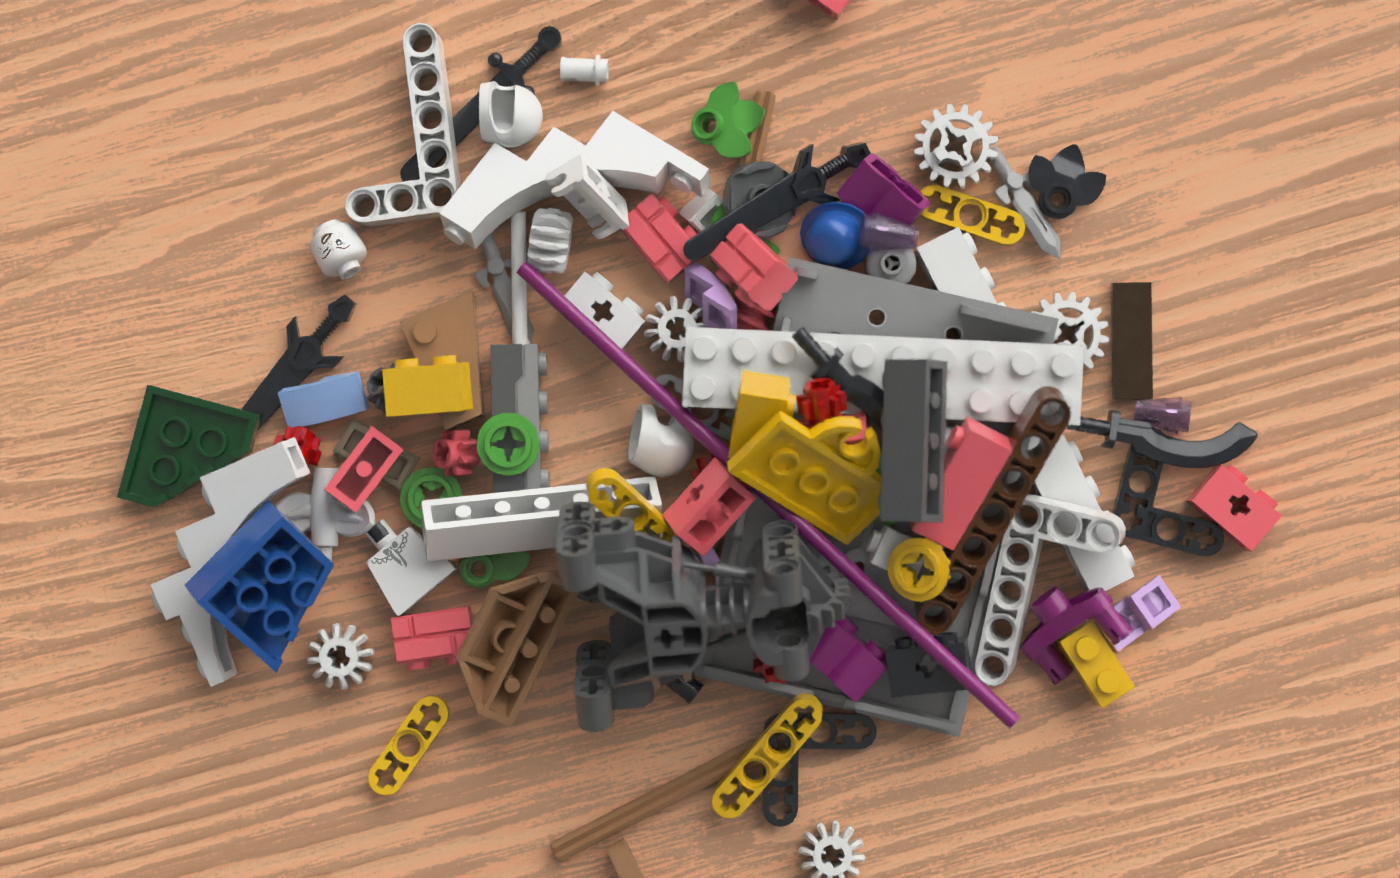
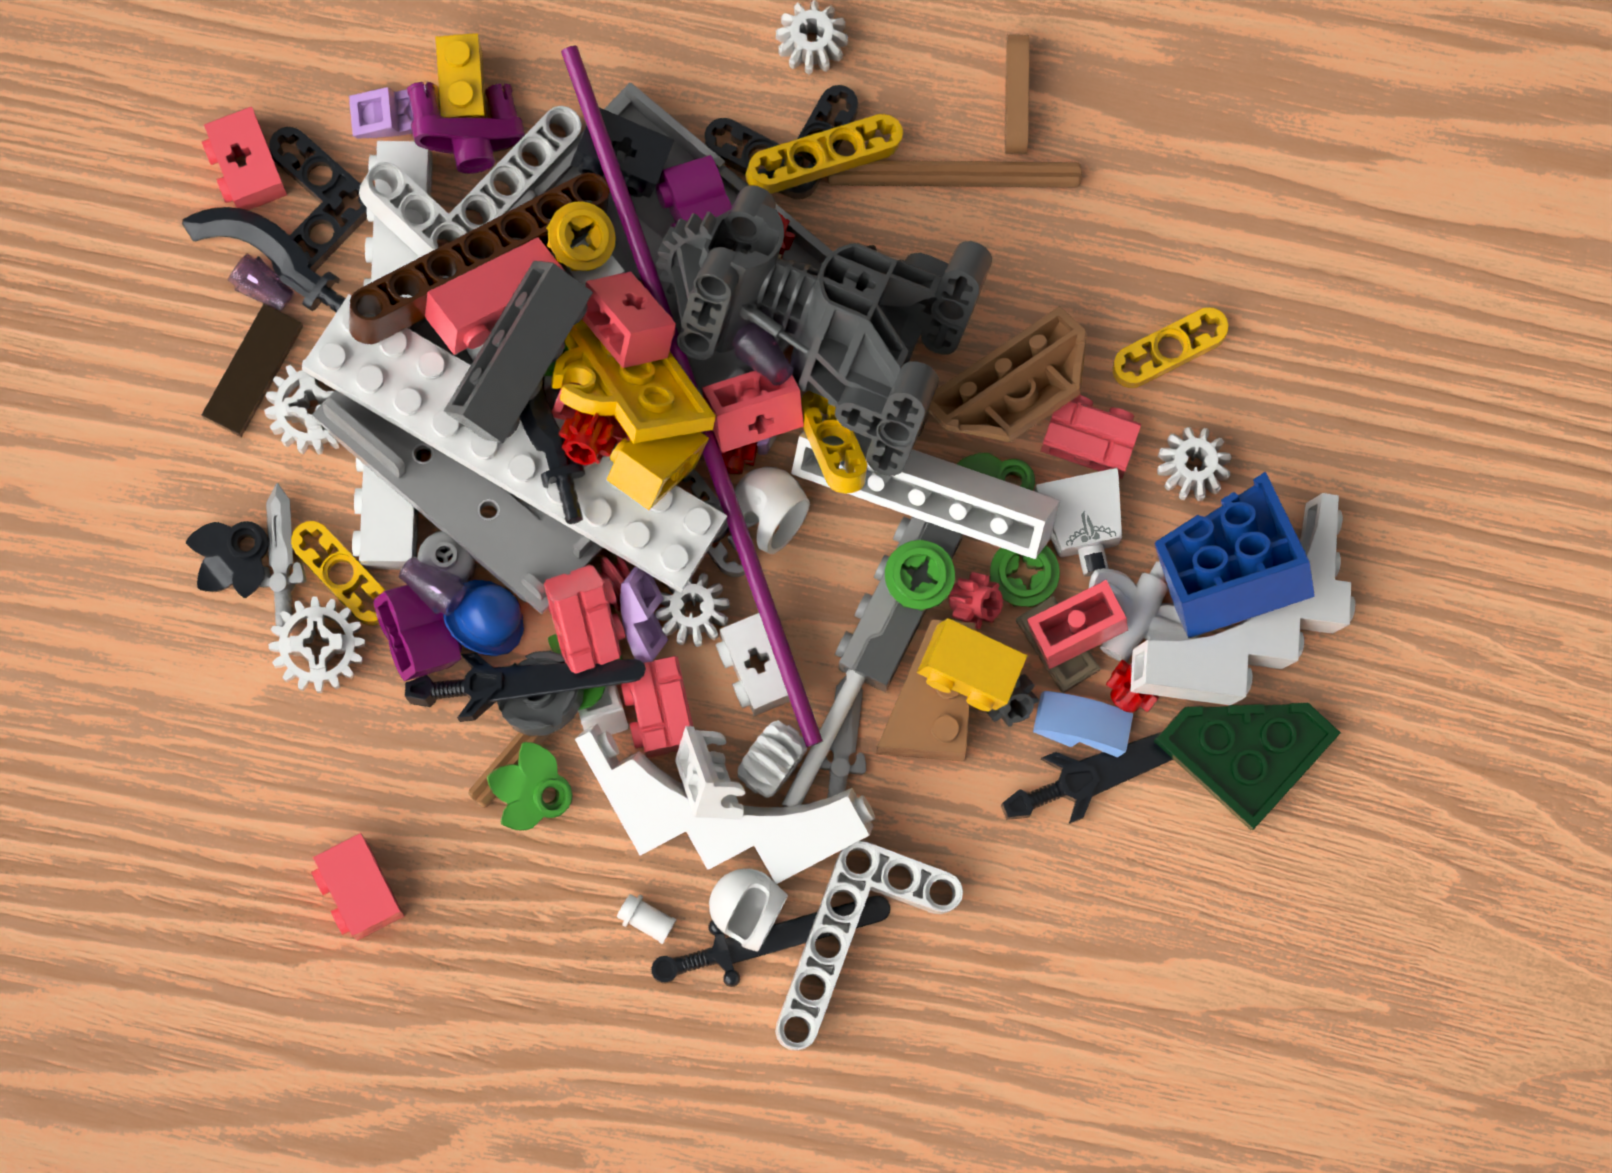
camera: 155 degrees left, 10 degrees down
(338, 249) = (991, 864): white head -> none
(721, 547) = (762, 353): none -> clear purple cone
(843, 520) = (628, 320): none -> coral brick

